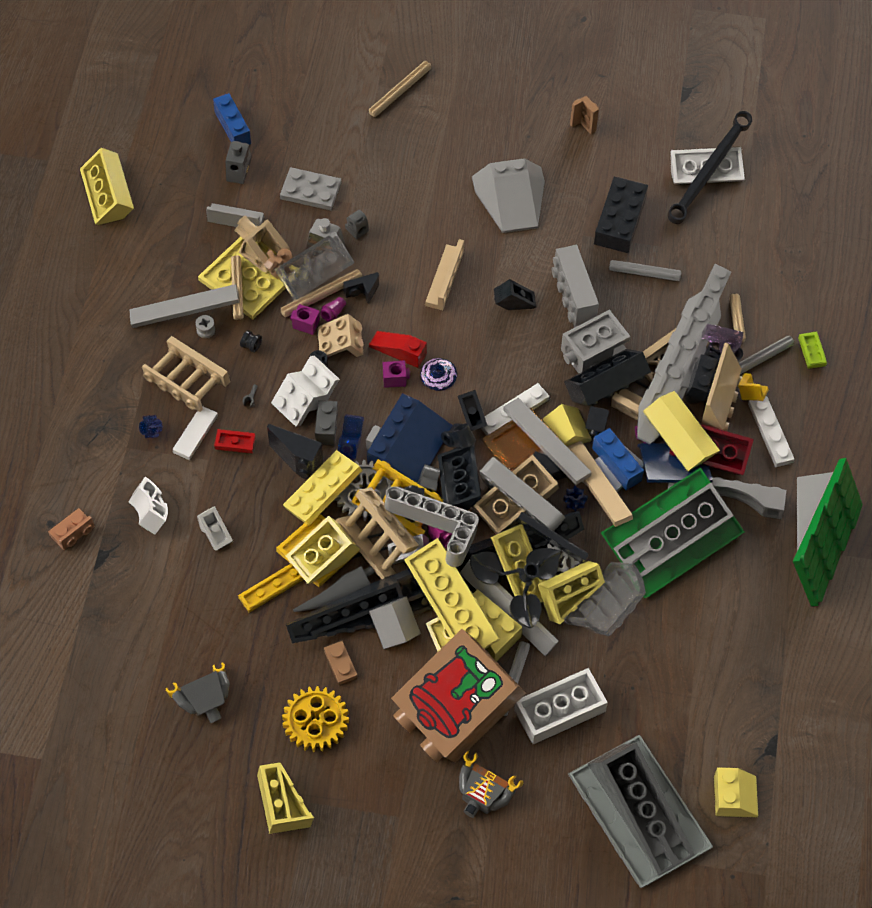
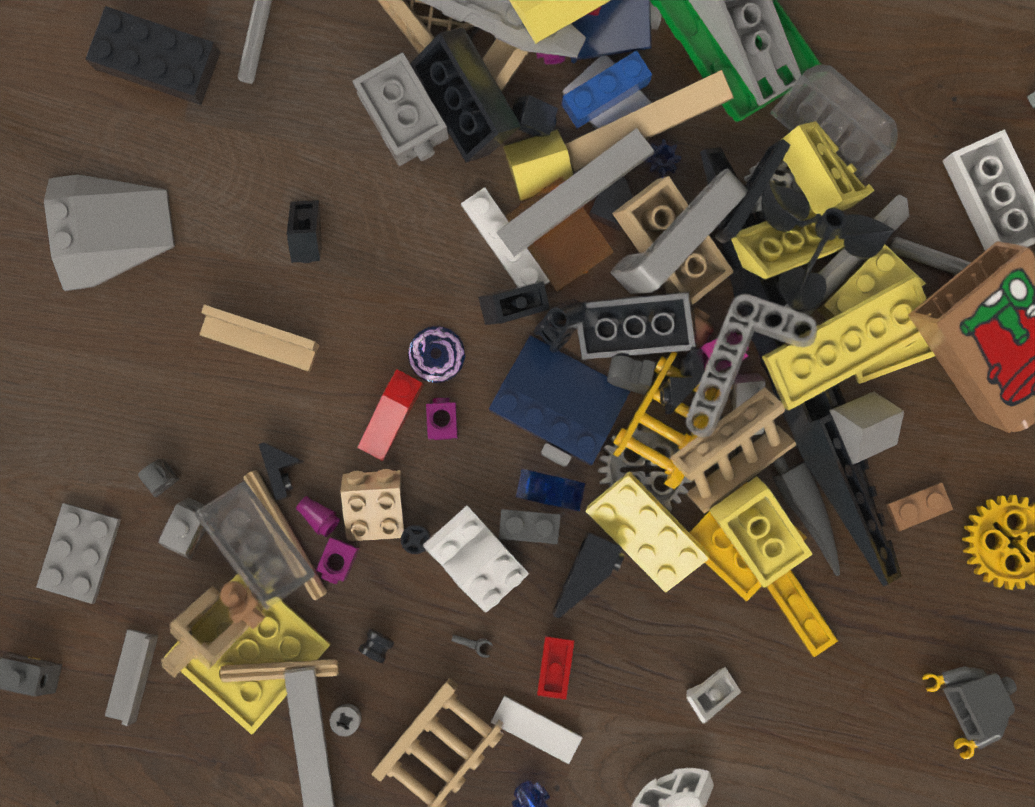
camera: 90 degrees left, 25 degrees up
(574, 285) = (294, 134): light grey brick -> none

